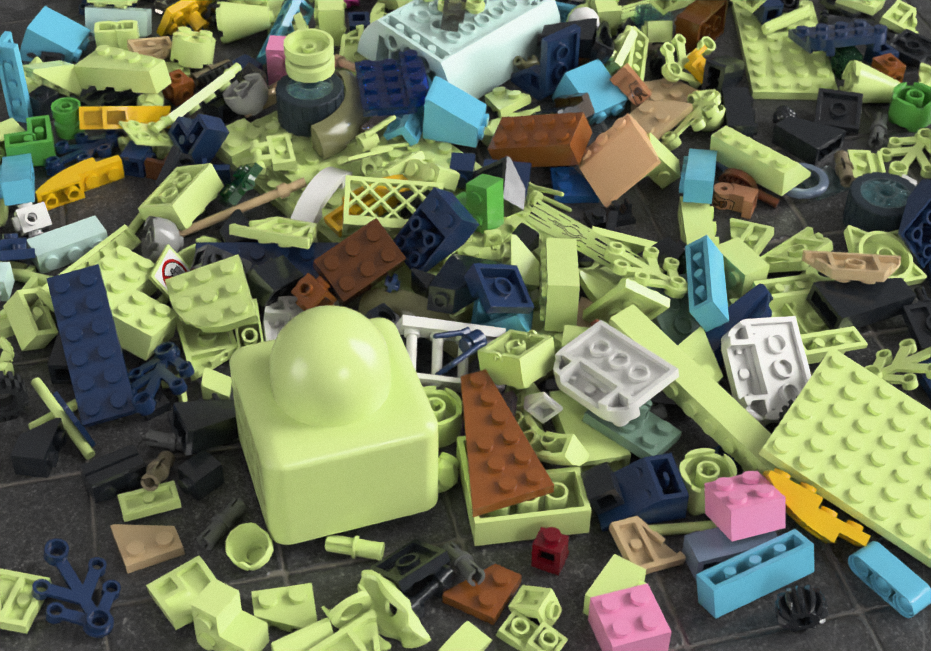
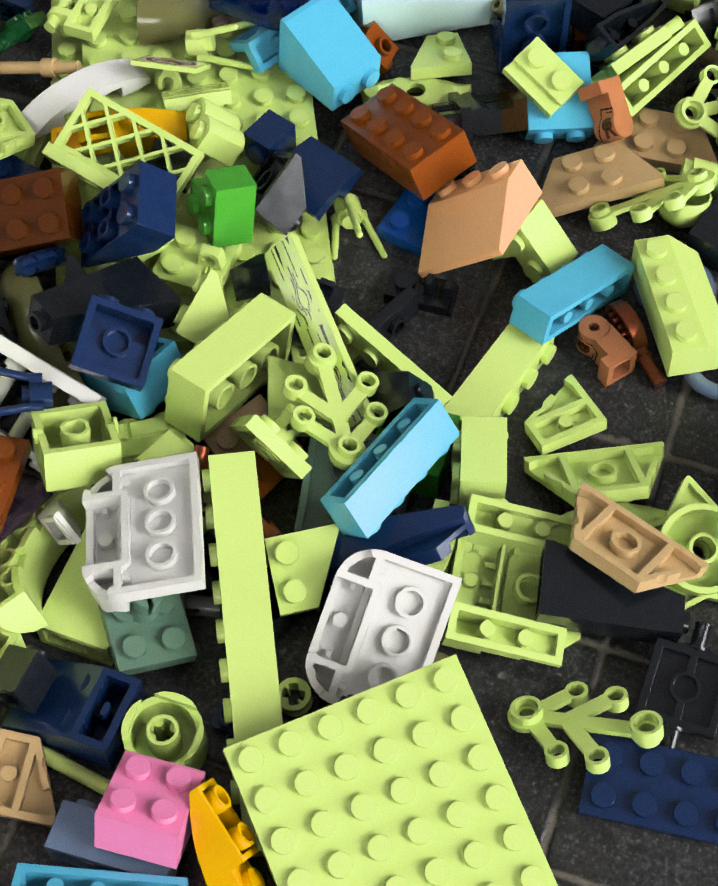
camera: 35 degrees right, 15 degrees up
(584, 78) = (543, 77): none -> yellowish green plate

